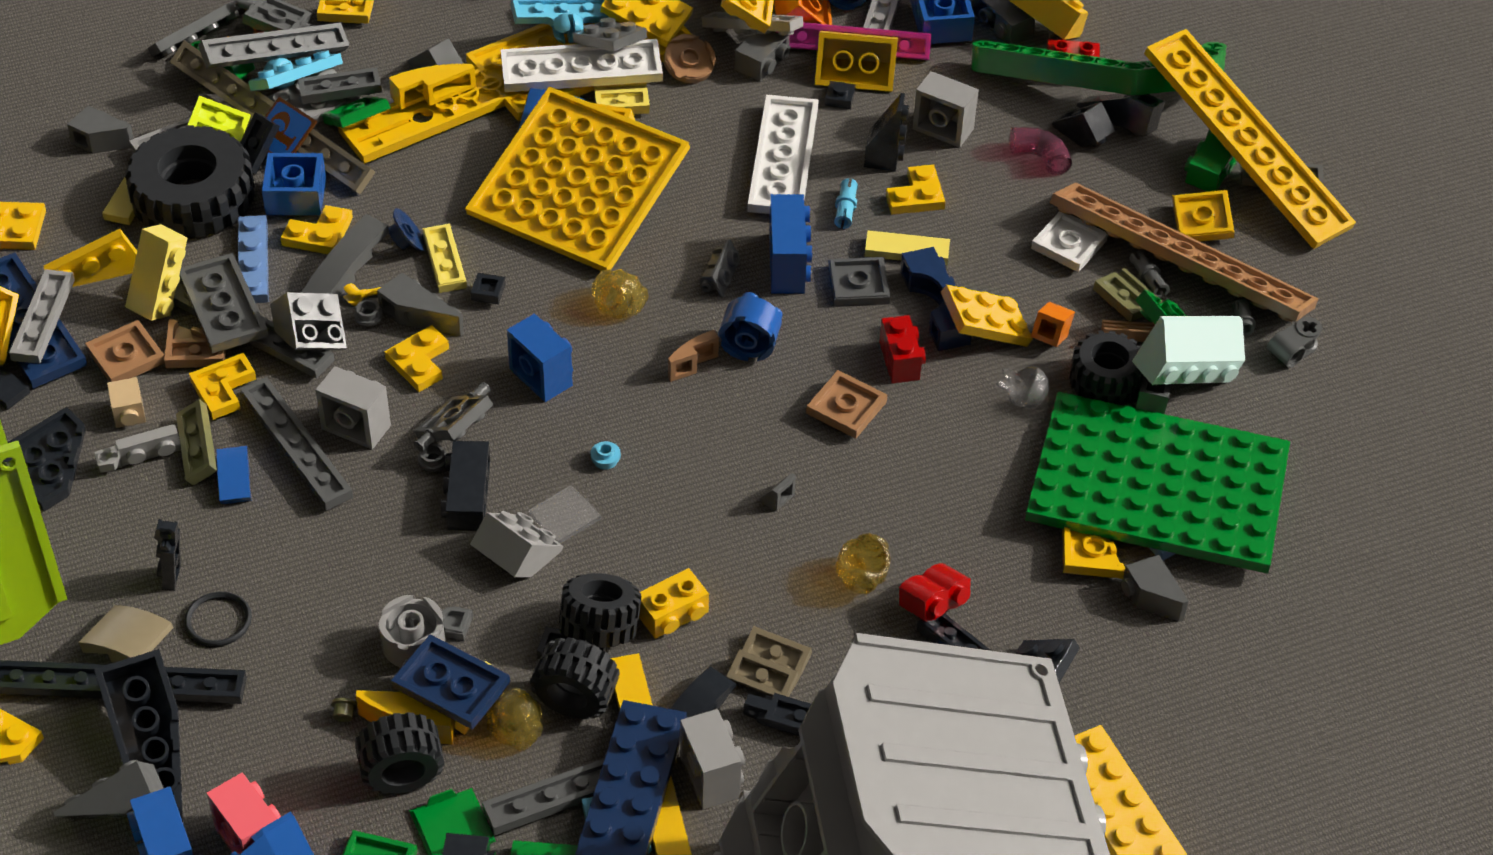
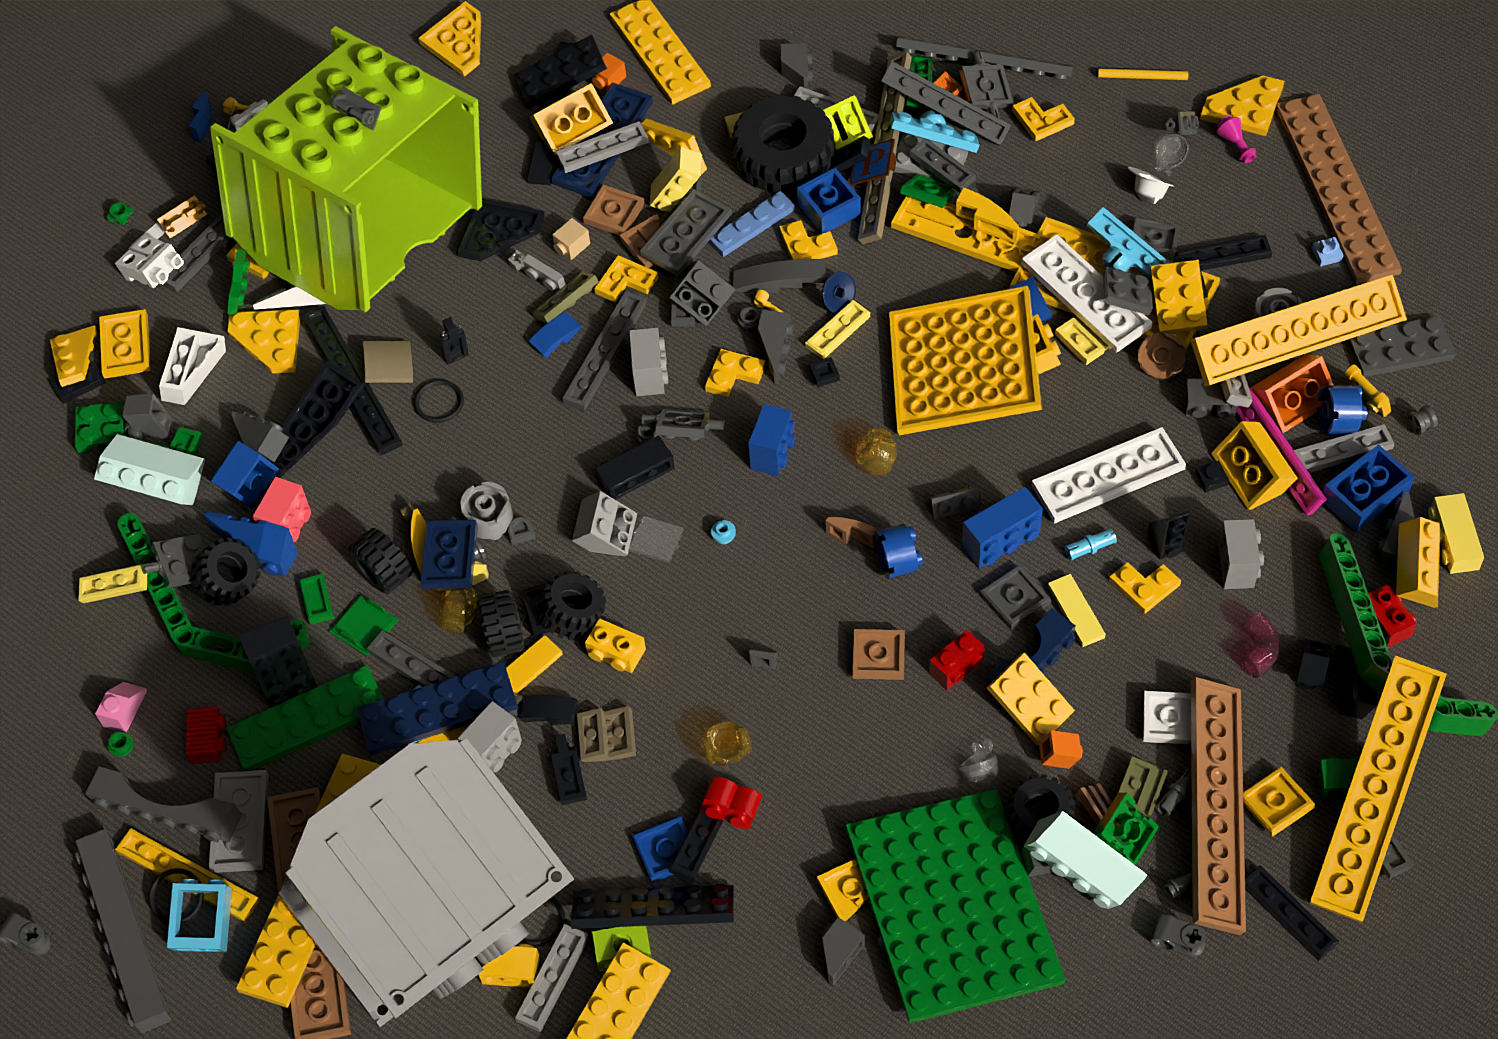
camera: 65 degrees right, 10 degrees up
(1316, 265) = (1290, 913): none -> black tile

